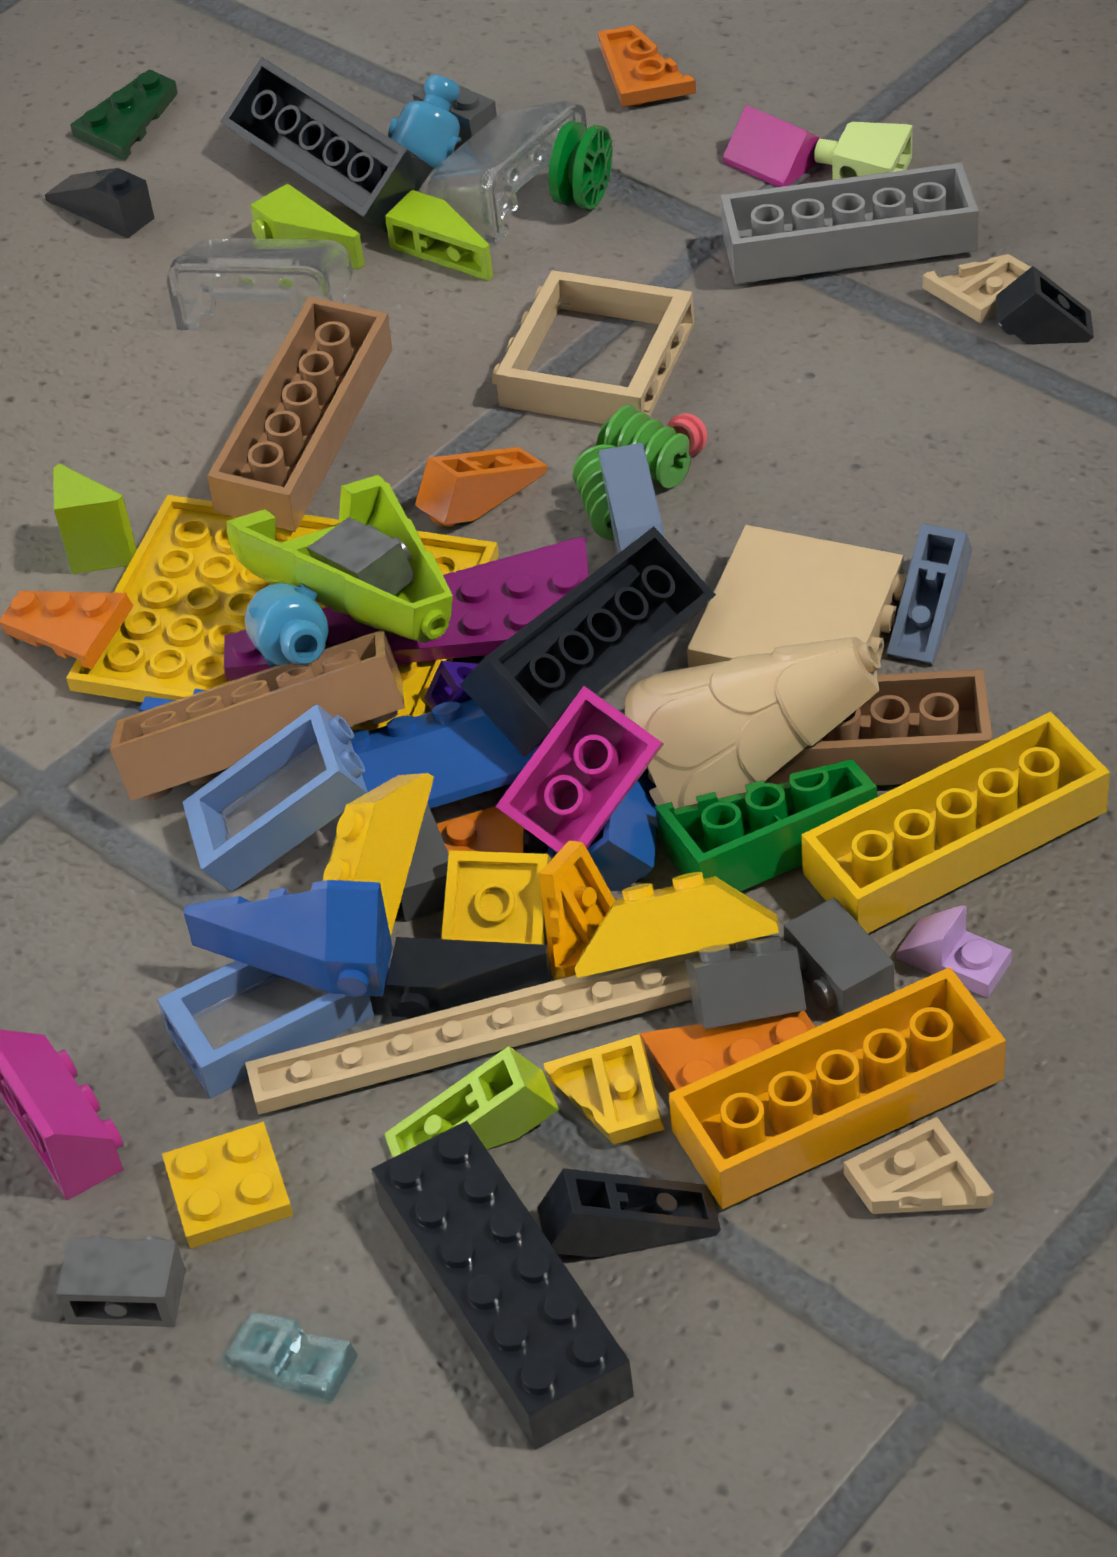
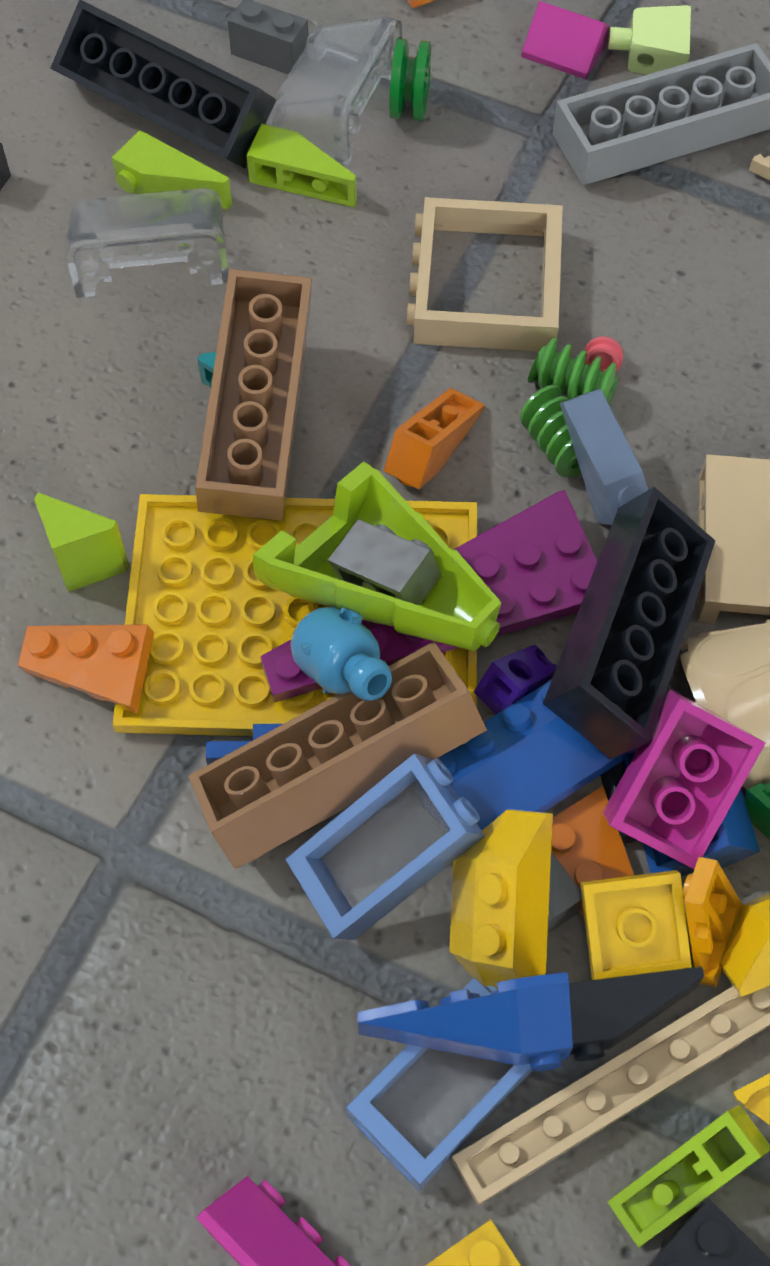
camera: 20 degrees left, 15 degrees up
(428, 125) = (254, 52): dark azure piece -> none

